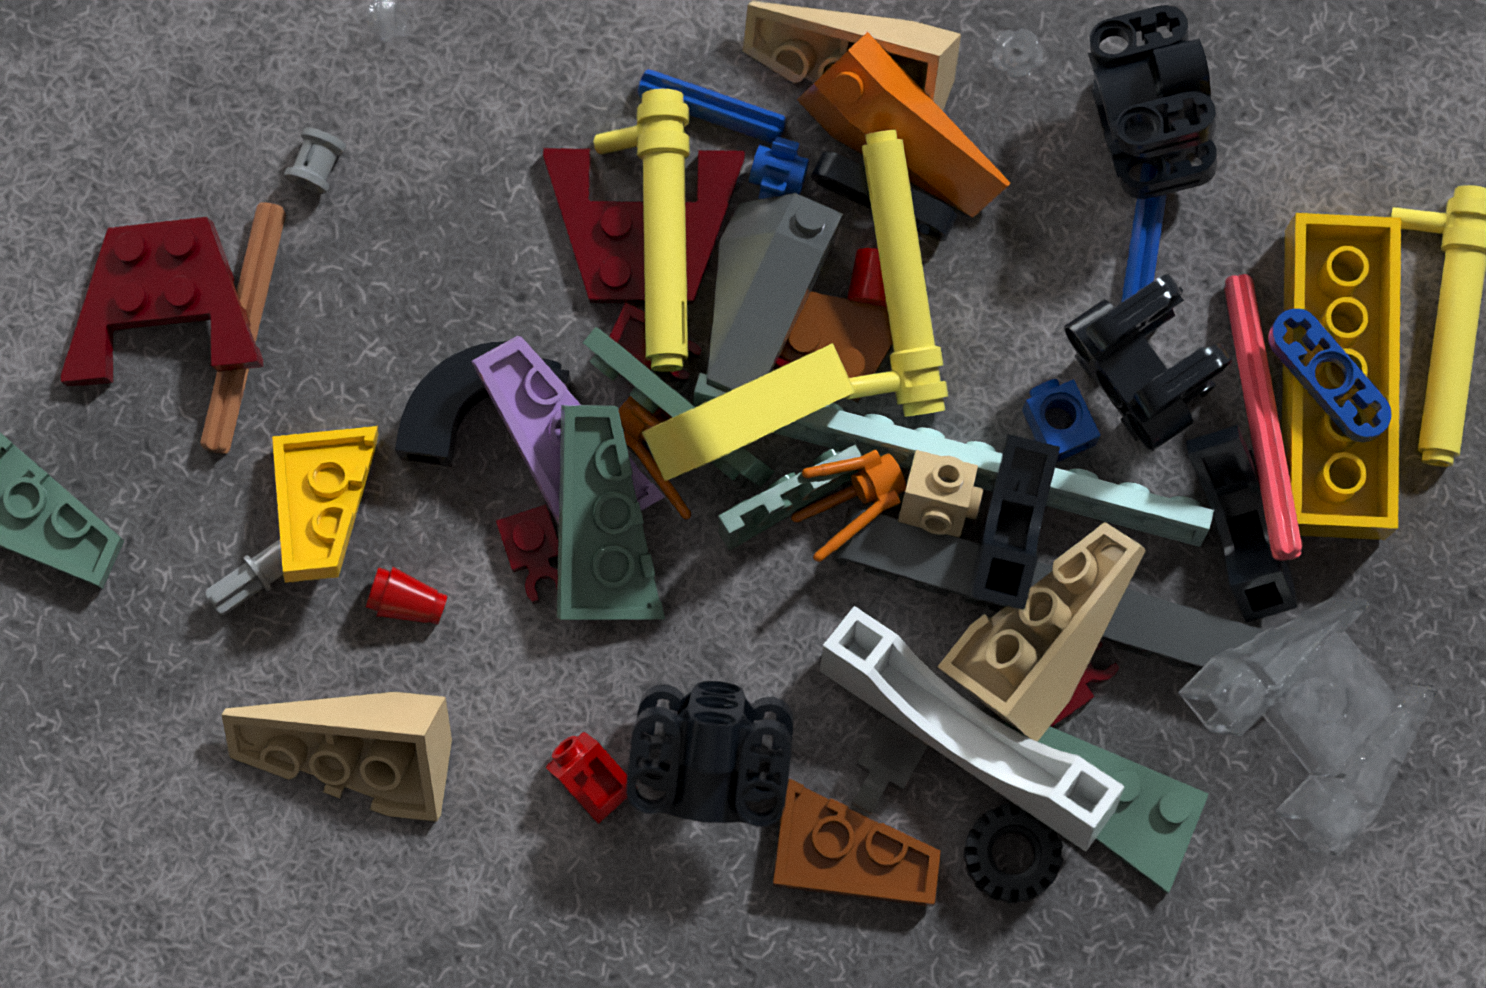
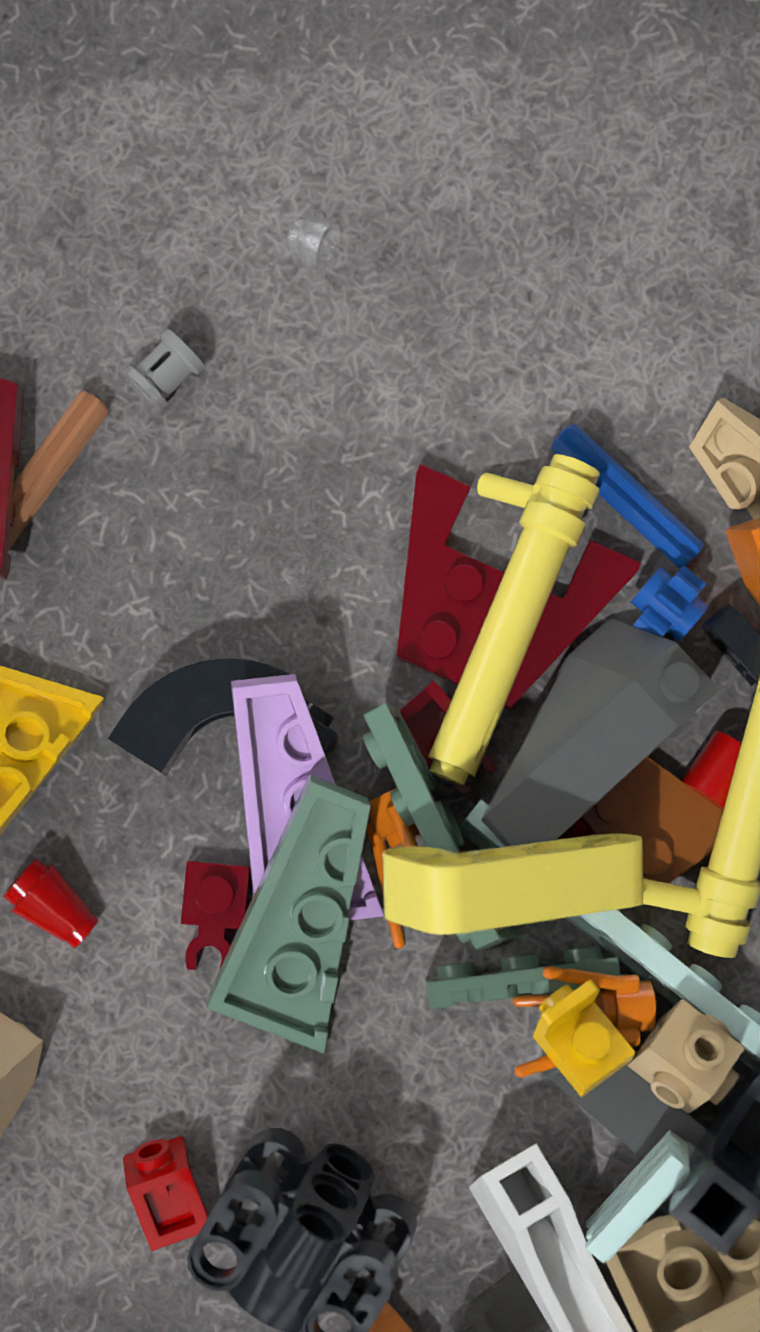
camera: 25 degrees right, 5 degrees up
(851, 510) = (581, 1037): none -> yellow bracket
(947, 611) = (637, 1197): none -> light aqua tile

